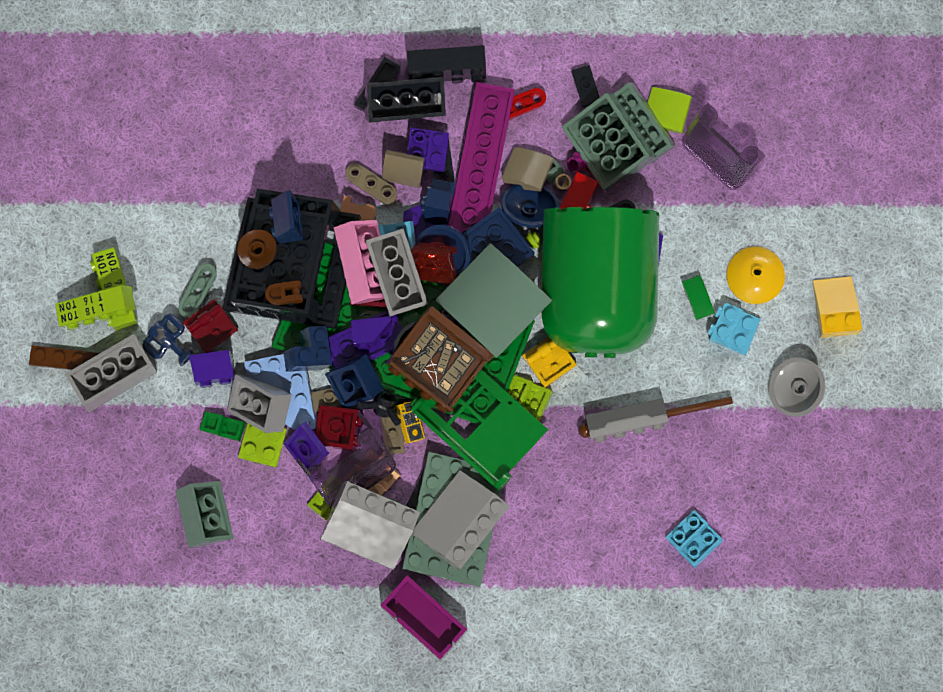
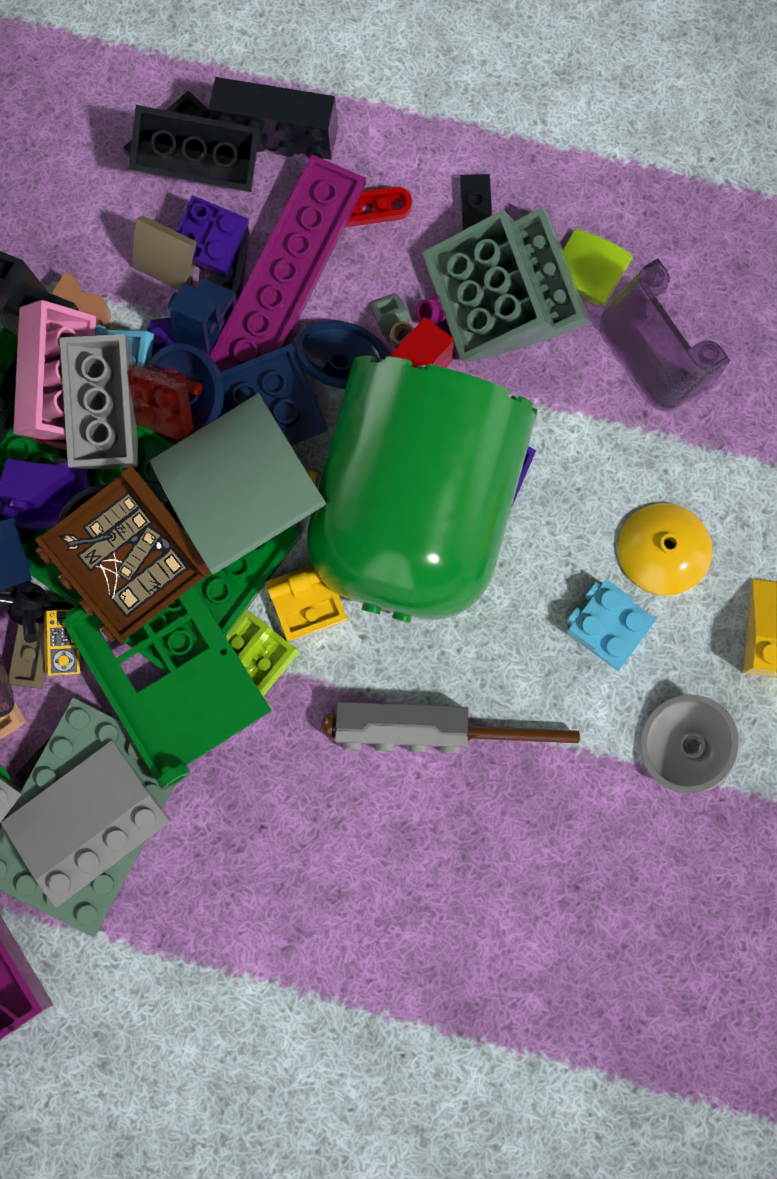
camera: 15 degrees right, 0 degrees up
(377, 190) = (120, 279): dark tan plate -> none
(527, 169) = (354, 301): dark tan slope -> none
(534, 239) = (331, 408): lime plate -> none
(694, 539) = (460, 949): medium azure slope -> none
(698, 297) = (565, 560): green slope -> none

